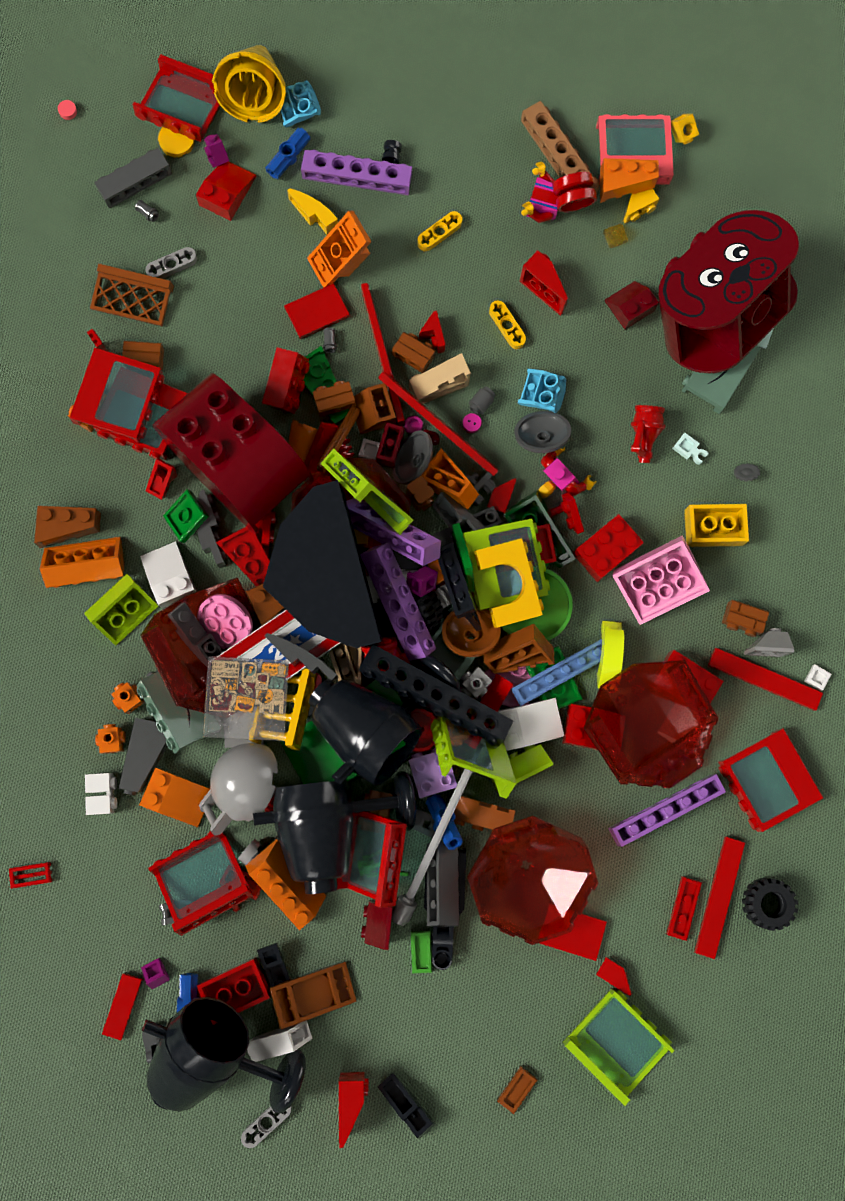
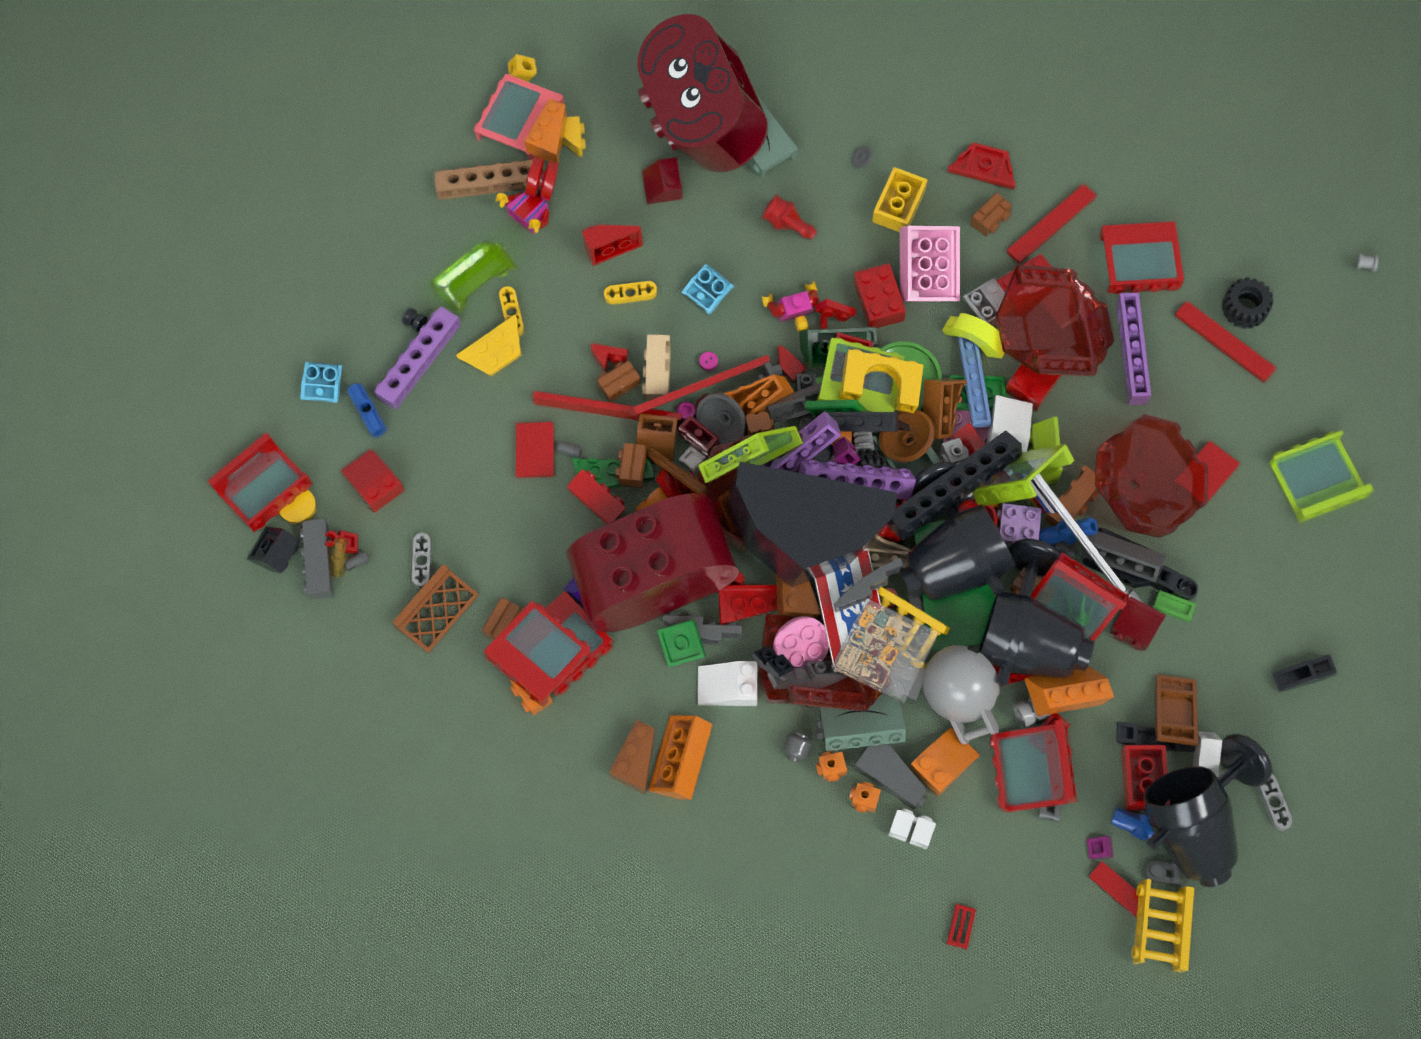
camera: 55 degrees left, 10 degrees down
(67, 109) = (212, 594): coral tile -> none
(95, 1082) = (1181, 918): none -> yellow fence
(96, 340) = (474, 656): red tile -> none
(121, 609) = (742, 740): lime slope -> none
(125, 139) = (274, 549): none -> black slope
(134, 659) = (797, 746): none -> dark grey head
(138, 193) = (339, 557): none -> clear yellow pin
(157, 192) = (352, 540): none -> red plate
(160, 478) = (633, 652): red slope -> none
(192, 602) = (772, 662): none -> black slope
(215, 150) = (332, 472): magenta brick -> none
(249, 85) = (287, 408): yellow cone -> none
(312, 210) = (435, 411): yellow slope -> none
(340, 250) = (493, 399): orange brick -> none
(352, 1091) = (1286, 717): red slope -> none
(396, 233) = (494, 349): none -> yellow wing
(454, 177) = (471, 272): none -> clear neon green windscreen
(482, 400) = (692, 343): dark grey brick -> none
(517, 1090) = (1326, 576): dark orange tile -> none
(542, 432) = (748, 303): dark grey dish -> none
(614, 975) = (1259, 453): red slope -> none
(615, 235) = (591, 168): clear yellow tile -> none
(648, 648) = (986, 301): none -> light grey slope
(684, 908) = (1223, 374): red tile -> none
(687, 447) = (818, 194): light aqua plate -> none
(771, 644) = (1024, 203): light grey slope -> none
(796, 590) = (985, 164): none -> red wing
(817, 677) = (1068, 182): white tile -> none

